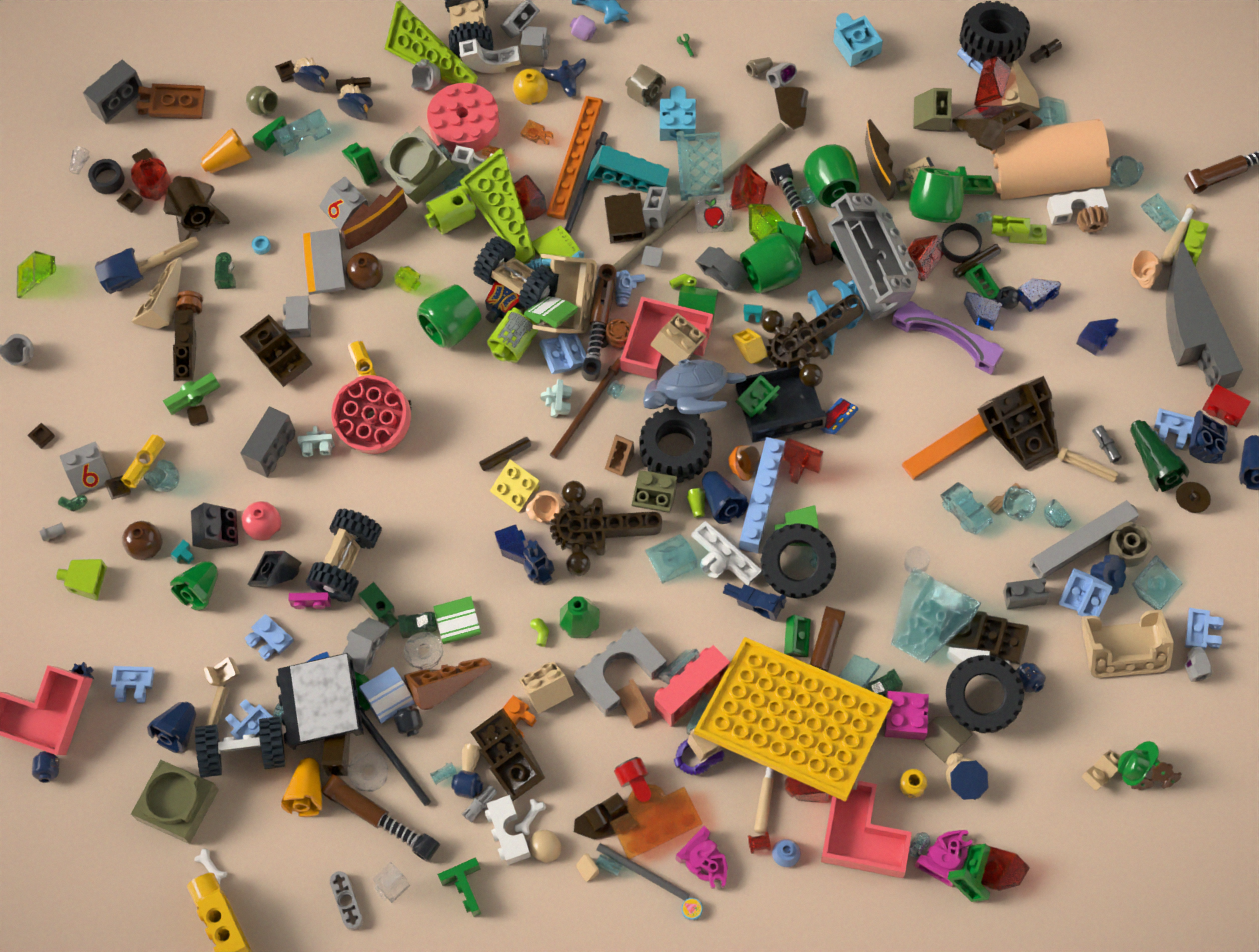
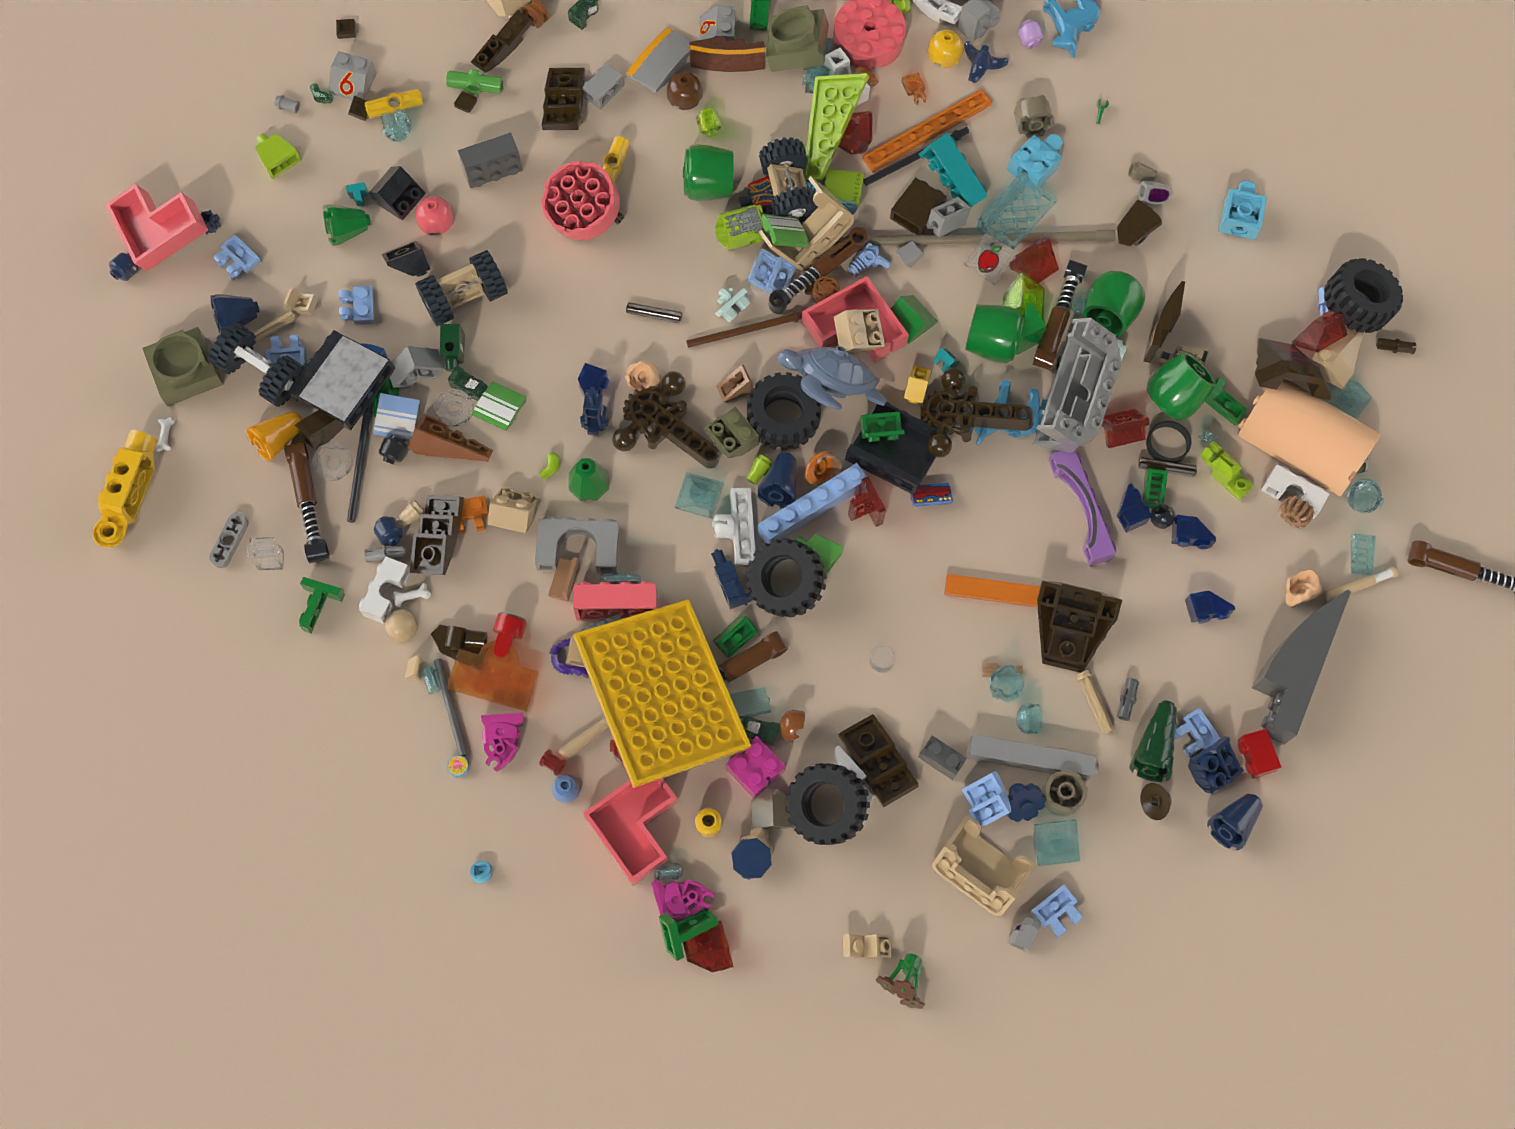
camera: 35 degrees right, 5 degrees up
(141, 540) = (340, 160): reddish brown cylinder -> none
(261, 245) = (629, 12): medium azure tile -> none
(314, 600) = (413, 304): dark pink plate -> none
(316, 439) = (528, 187): light aqua hips -> none
(443, 773) = (381, 508): clear light blue pin -> none
(450, 210) = (788, 94): lime cylinder -> none
(515, 486) = (636, 342): light yellow hinge -> none
(615, 389) = (782, 332): clear light blue bush -> none
(683, 279) = (917, 291): lime arm -> none
(722, 268) = (954, 306): dark grey brick -> none
(901, 661) = (790, 723): none -> dark orange hair
(930, 615) = (849, 707): clear light blue wedge -> none
(933, 109) = (1251, 318): olive slope -> none
(960, 503) = (961, 657): clear light blue brick -> none
(1031, 677) = (880, 824): dark blue head -> none
(1137, 762) = (893, 964): green piece -> none
(1195, 238) = (1369, 600): lime hinge -> none

